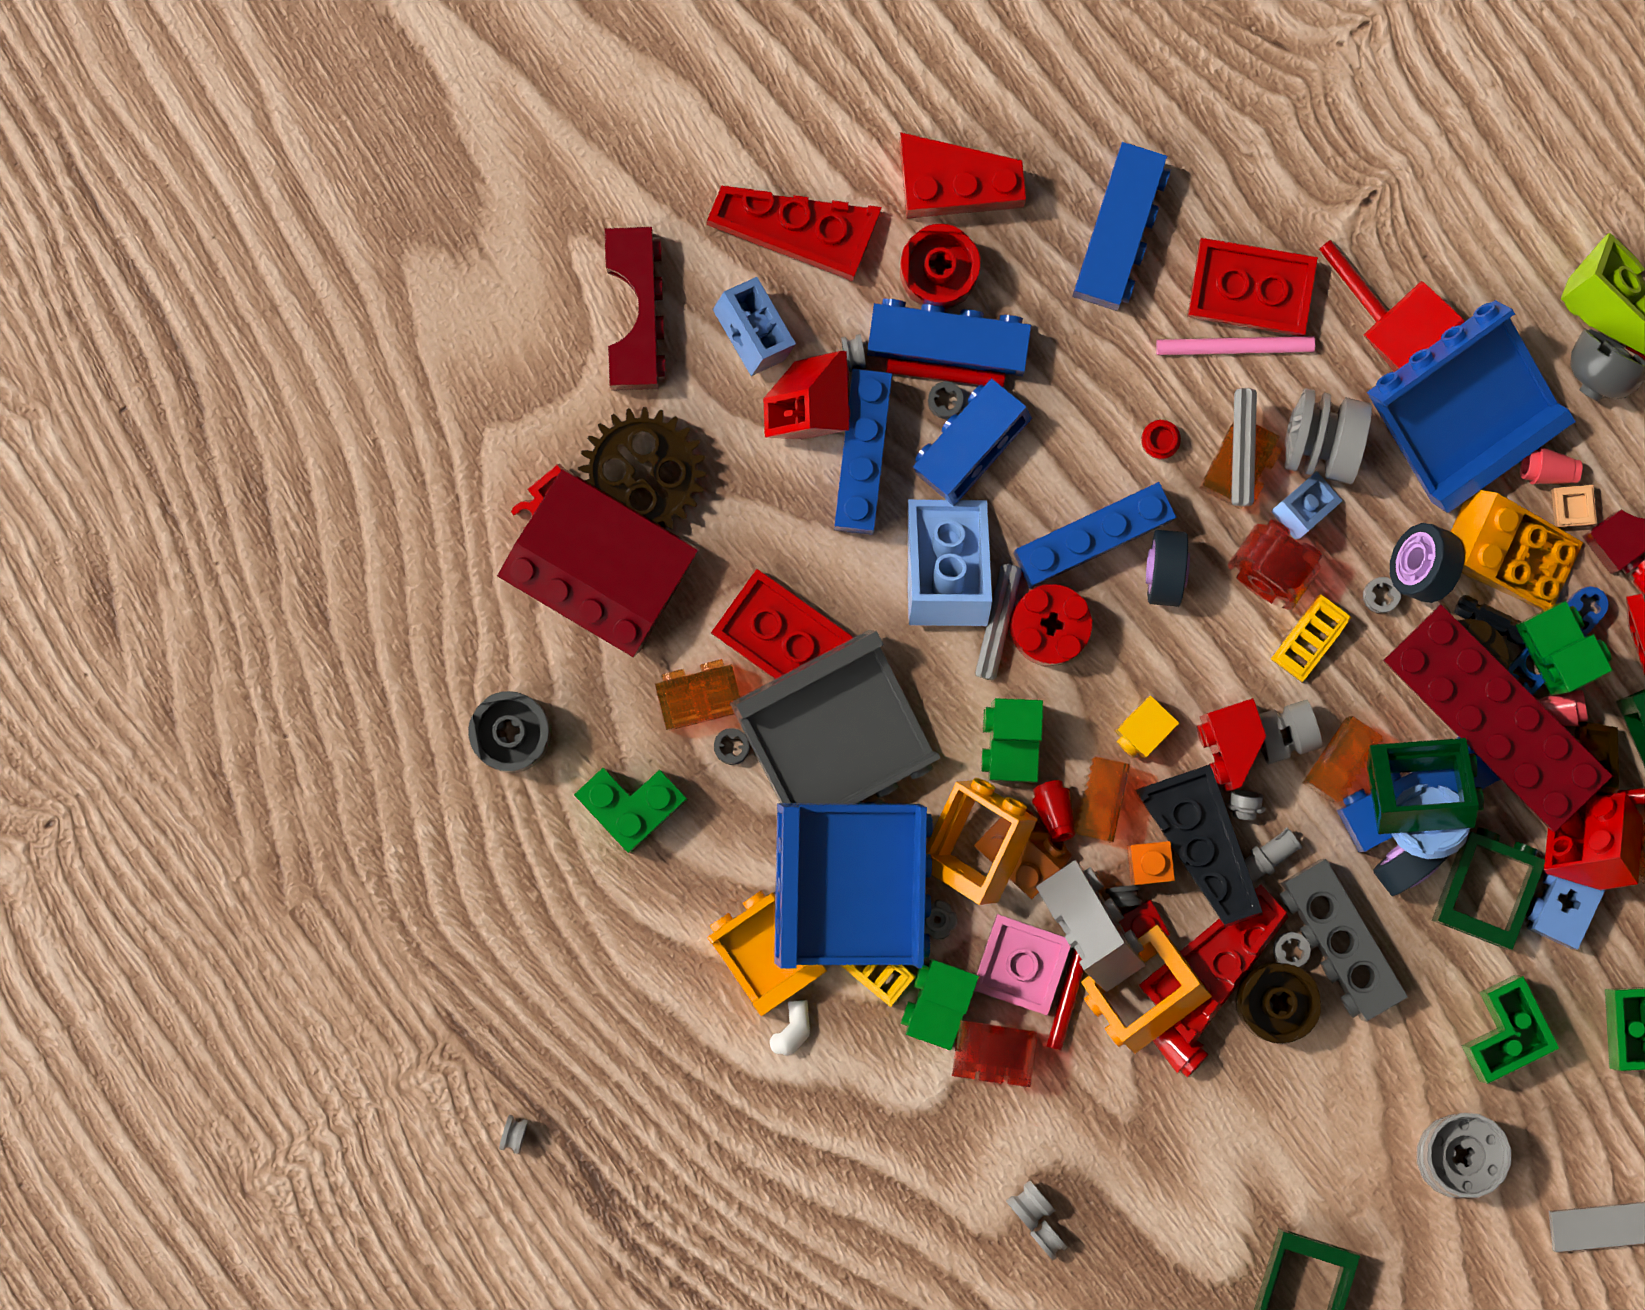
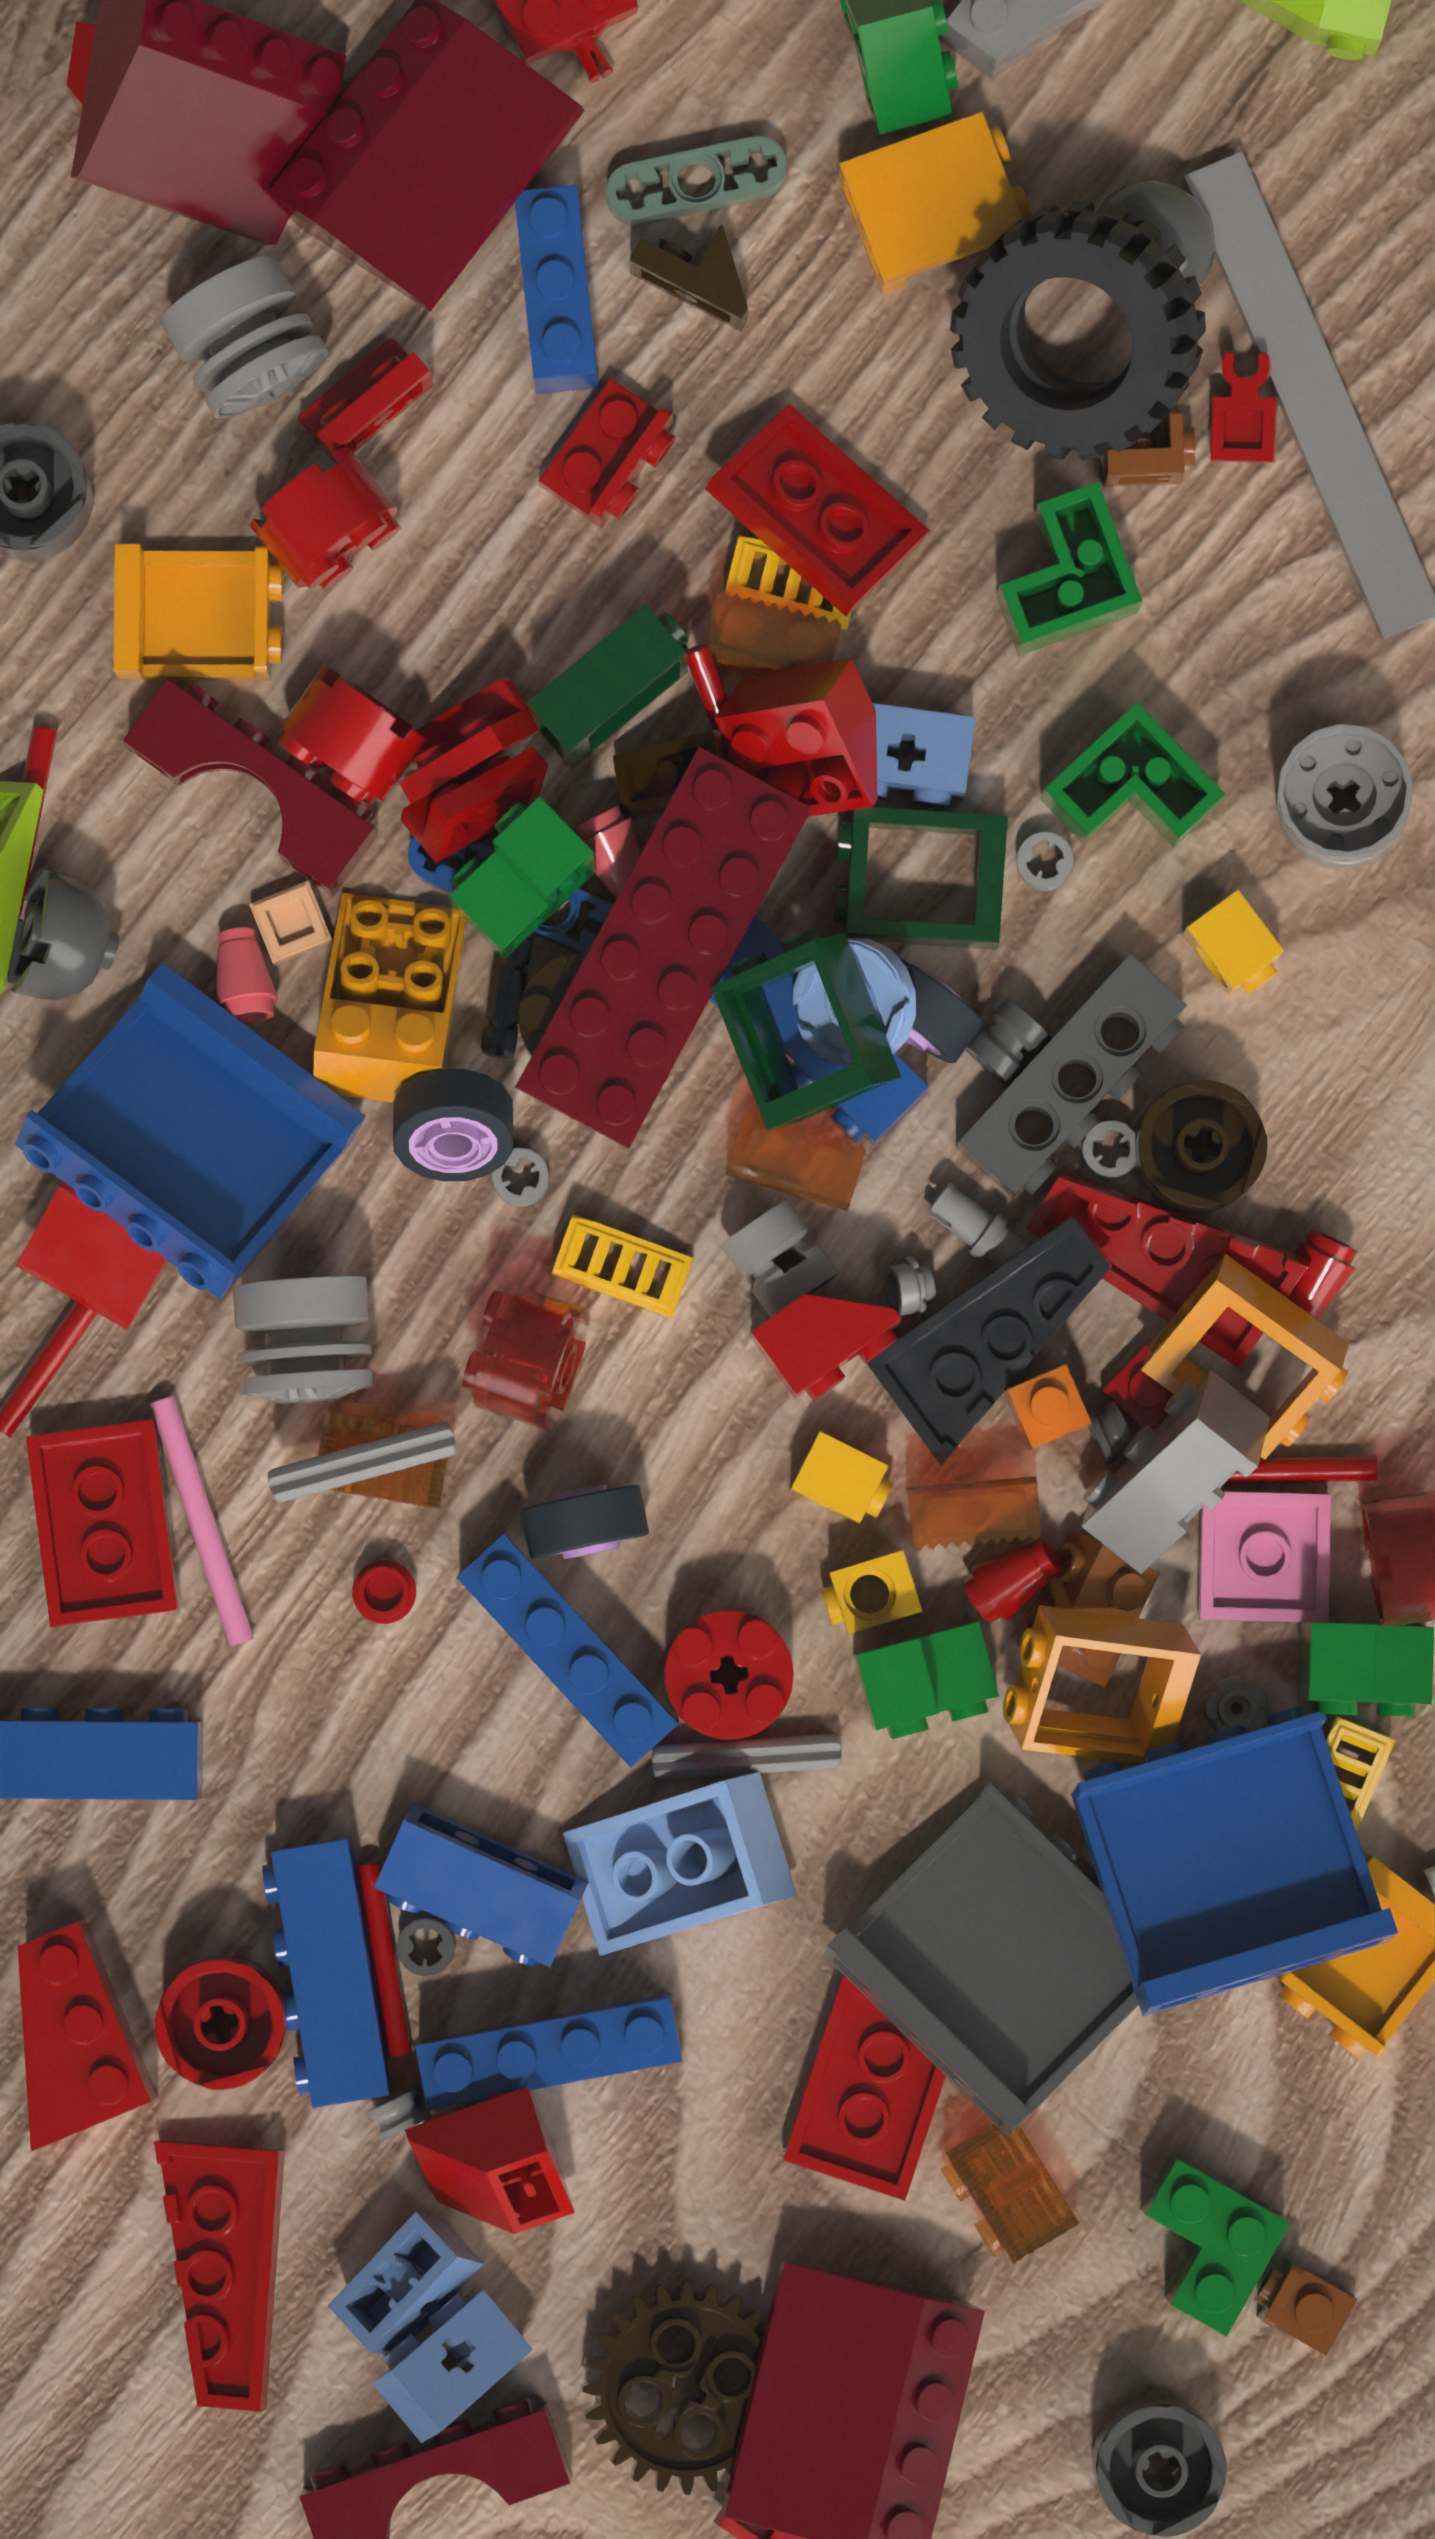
camera: 105 degrees left, 0 degrees up
(575, 848) = (1303, 2305): none -> dark orange bracket
(707, 359) = (484, 2351): none -> medium blue brick
(733, 734) = (1089, 2108): dark grey bush -> none
(1063, 741) = (896, 1576): none -> yellow brick
(1306, 505) = (419, 1335): light blue slope -> none
(1375, 908) = (1007, 1042): none -> dark grey wheel
(1392, 1062) = (1235, 945): none -> yellow brick
(1483, 955) = (1063, 866): none -> light grey bush
(1613, 626) = (474, 803): none -> red bracket

